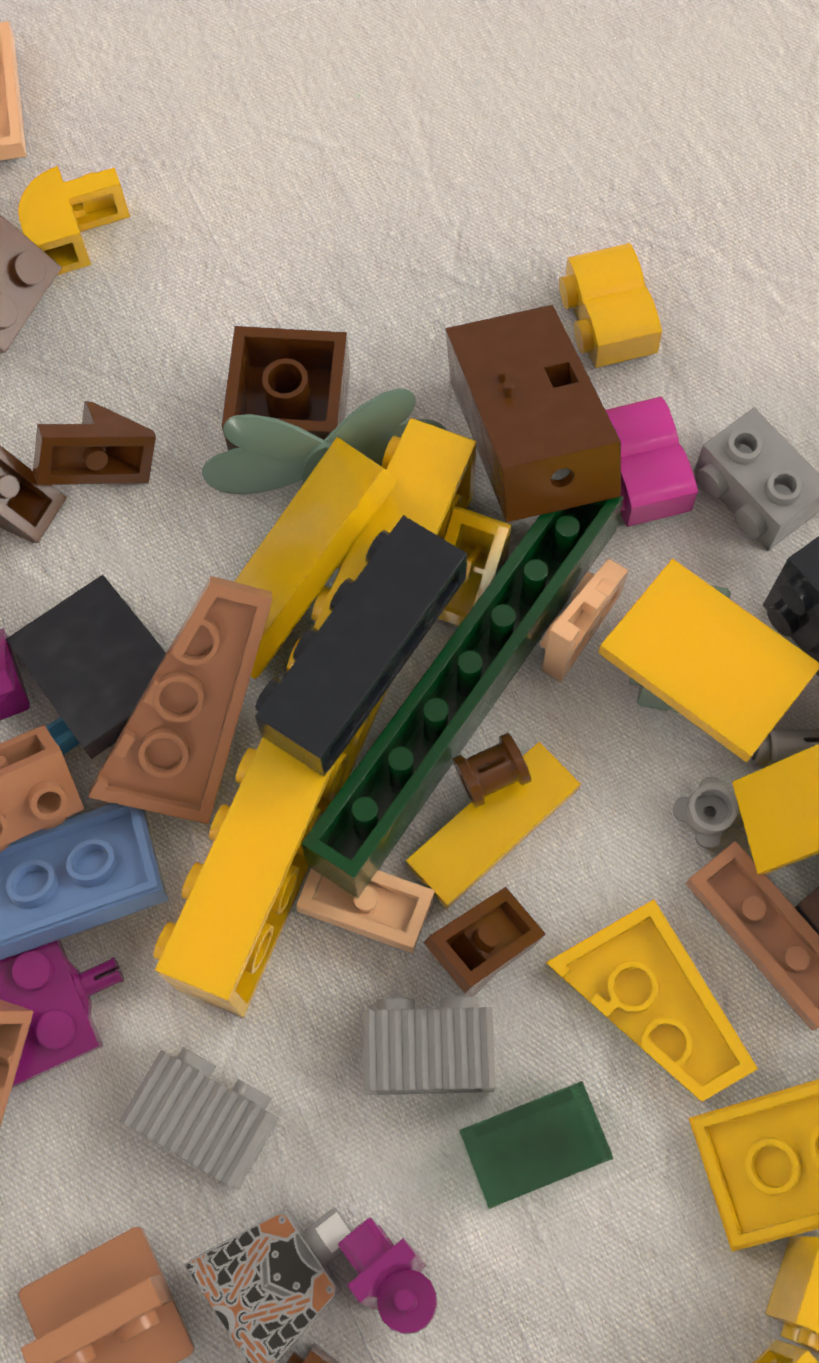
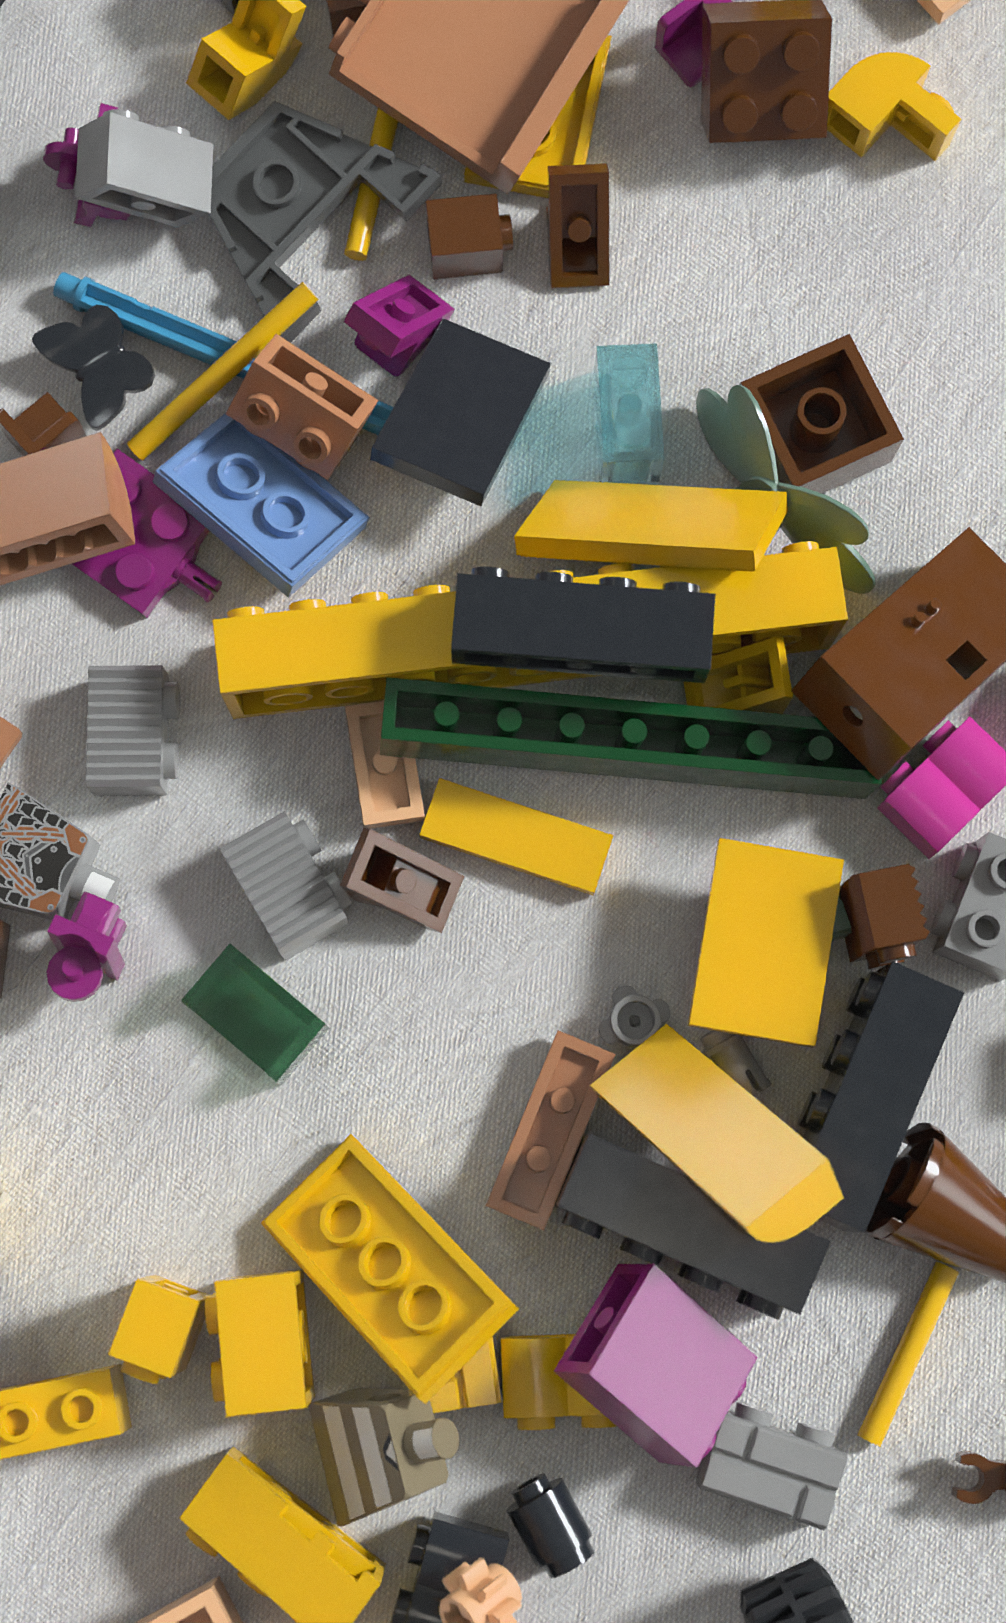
camera: 55 degrees right, 10 degrees up
(98, 451) = (663, 290): reddish brown slope -> none
(185, 532) = (628, 413): none -> clear light blue brick
(188, 714) = (450, 516): nougat wing -> none
(492, 769) = (556, 806): reddish brown bush -> none
(580, 620) = (752, 812): light nougat wing -> none
(657, 998) = (439, 1056): yellow wing -> none
(738, 552) = (883, 916): none -> reddish brown brick

